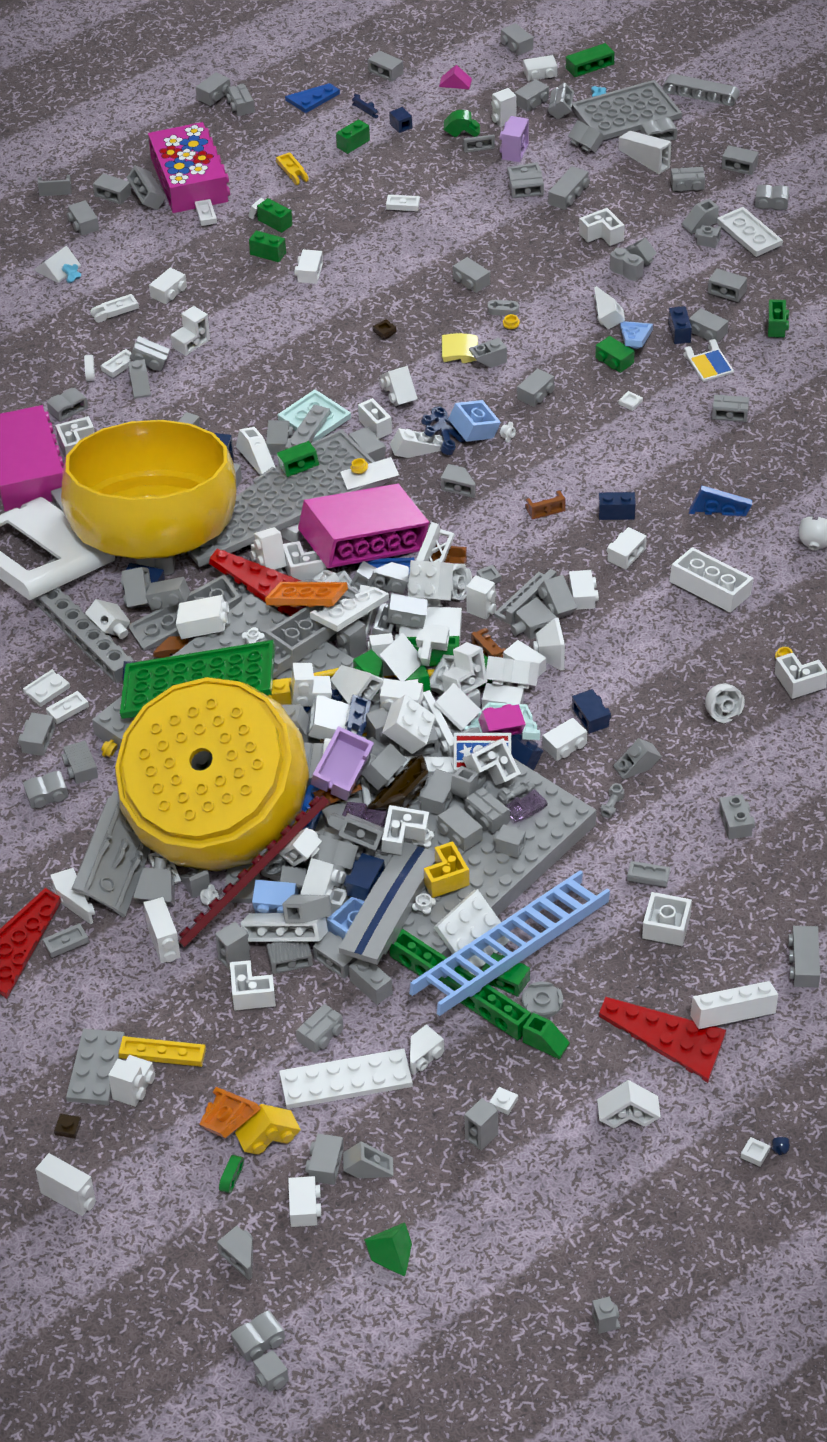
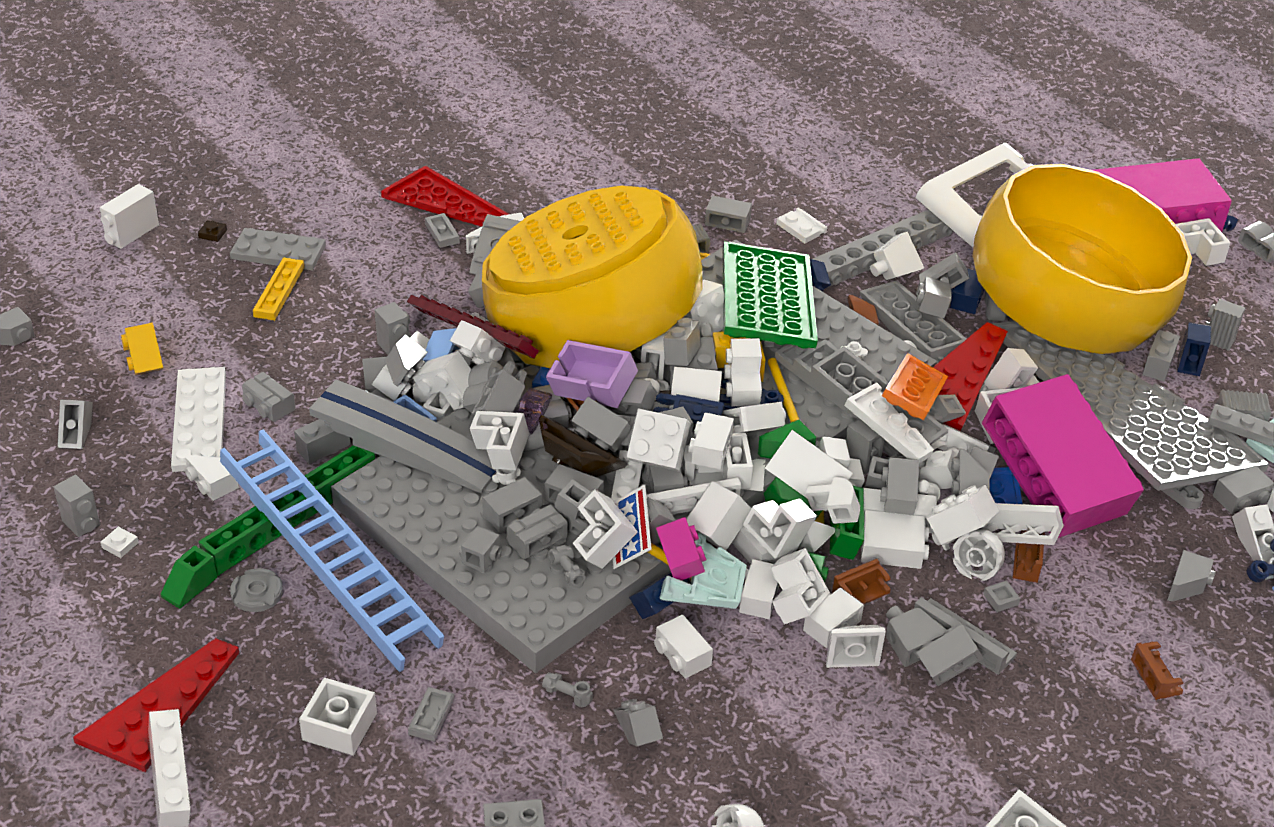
camera: 90 degrees right, 5 degrees down
(67, 707) = (768, 235): white plate -> none
(130, 1079) = (240, 261): white brick -> none
(162, 930) = (427, 277): white brick -> none
(202, 616) = (886, 313): white brick -> none
(227, 1113) = (172, 318): orange wing -> none
(231, 1173) = (104, 327): green beam -> none
(250, 991) = (337, 340): white brick -> none
(254, 449) = (1209, 383): white slope -> none
(297, 458) = (1189, 410): green brick -> none
(303, 1201) = (47, 373): white brick -> none
(325, 1158) = (100, 390): light grey brick -> none
(326, 576) = (962, 424): white plate -> none
(359, 466) = (1173, 454): yellow plate -> none
(363, 876) = (449, 414): dark blue brick -> none
(376, 471) = (1165, 468): white sticker -> none
(426, 900) = (402, 468): white plate -> none
(448, 872) = (439, 486): yellow brick -> none
(468, 922) = (364, 508): white plate -> none
(481, 597) = (944, 572): white brick -> none
(511, 981) = (288, 563): green brick -> none
(527, 806) = (541, 573): clear purple slope -> none
(582, 589) = (977, 694): white brick -> none
(591, 711) = (734, 679): dark blue brick -> none
(617, 506) = (1163, 752): dark blue brick -> none
(626, 548) = (1067, 752): white brick -> none
(627, 1103) = (49, 644): white brick -> none

